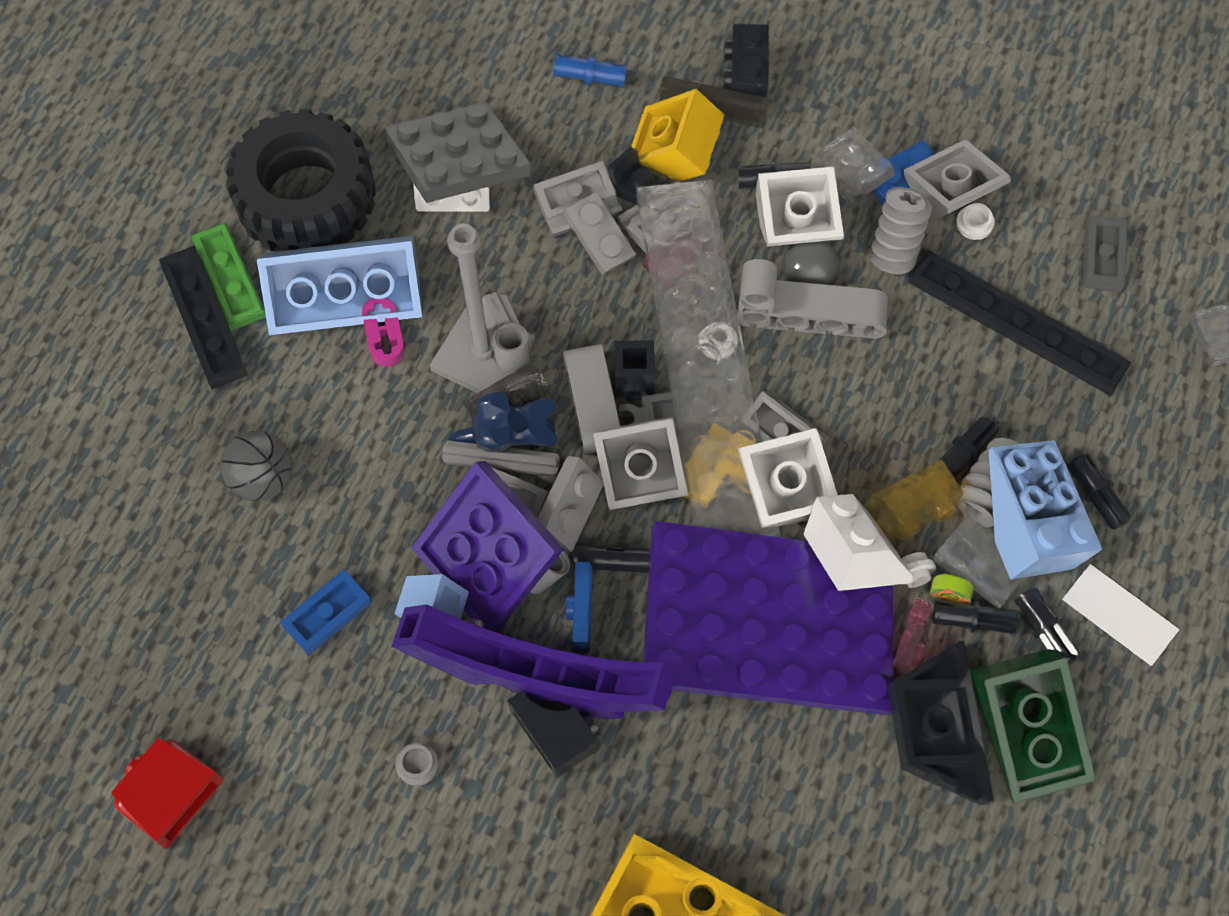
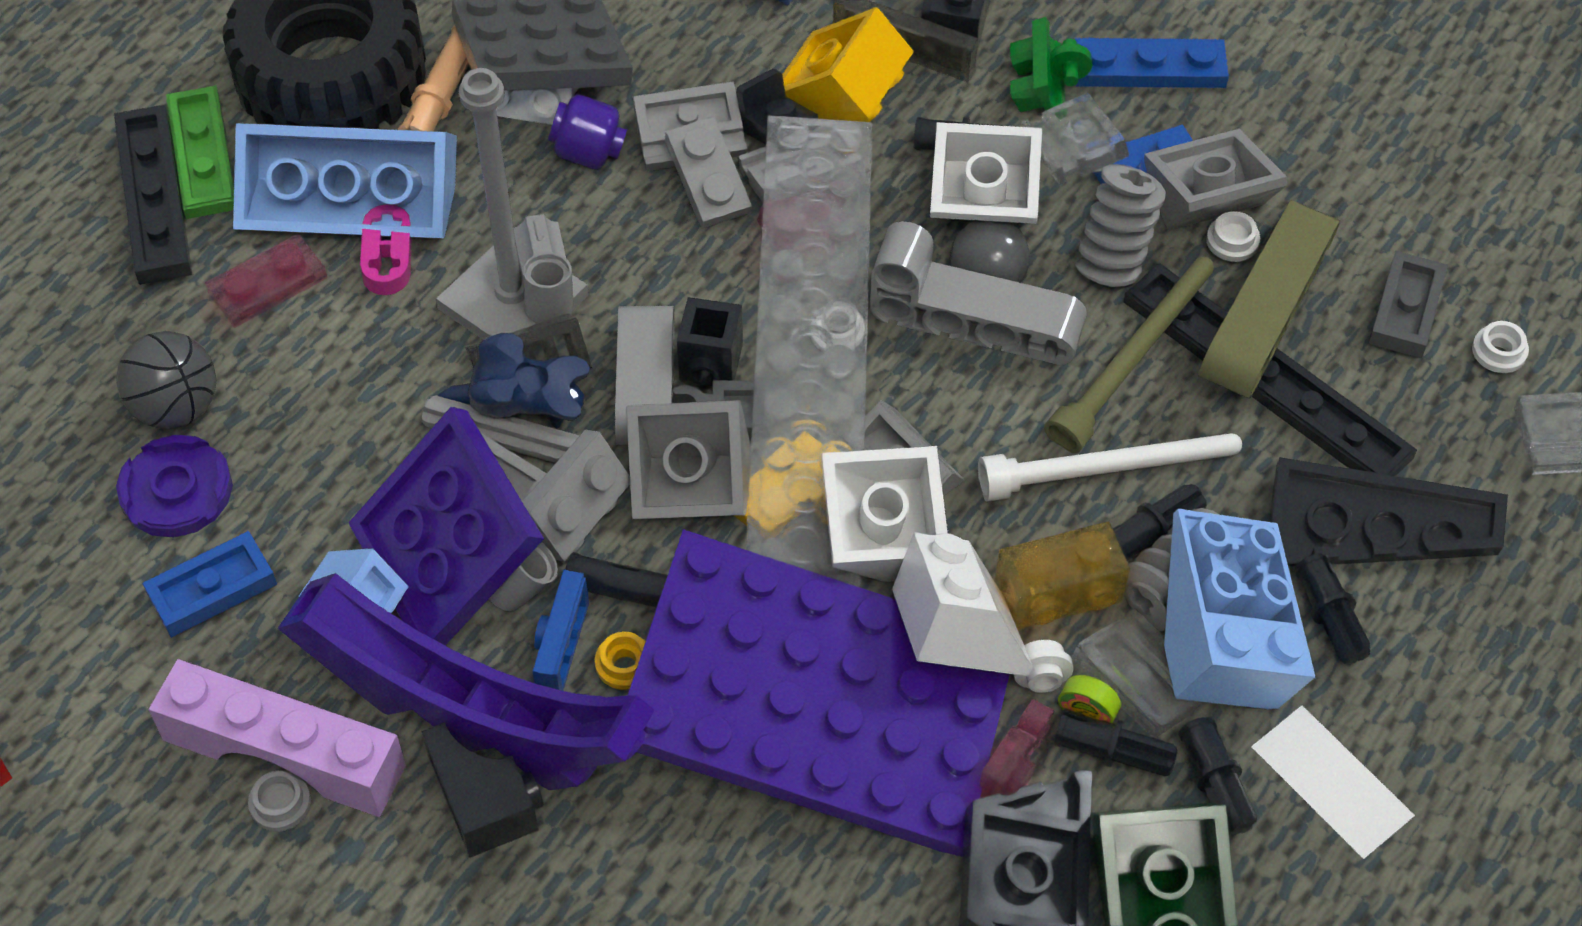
camera: 10 degrees right, 10 degrees down
(289, 550) = (180, 501): none -> dark purple tile
(303, 370) = (266, 280): none -> clear pink plate
(387, 207) = (432, 99): none -> light nougat pin
(434, 722) = (328, 751): none -> lavender arch
(505, 216) = (586, 132): none -> dark purple head
(623, 605) = (614, 647): none -> yellow plate
(824, 109) = (1051, 65): none -> green hips
(856, 432) = (1002, 475): none -> white piece
(889, 93) = (1156, 63): none -> blue plate
(896, 384) = (1073, 424): none -> olive piece
(1013, 268) = (1269, 299): none -> olive beam
(1116, 418) = (1381, 516): none -> black wing
(1175, 266) = (1503, 335): none -> white plate

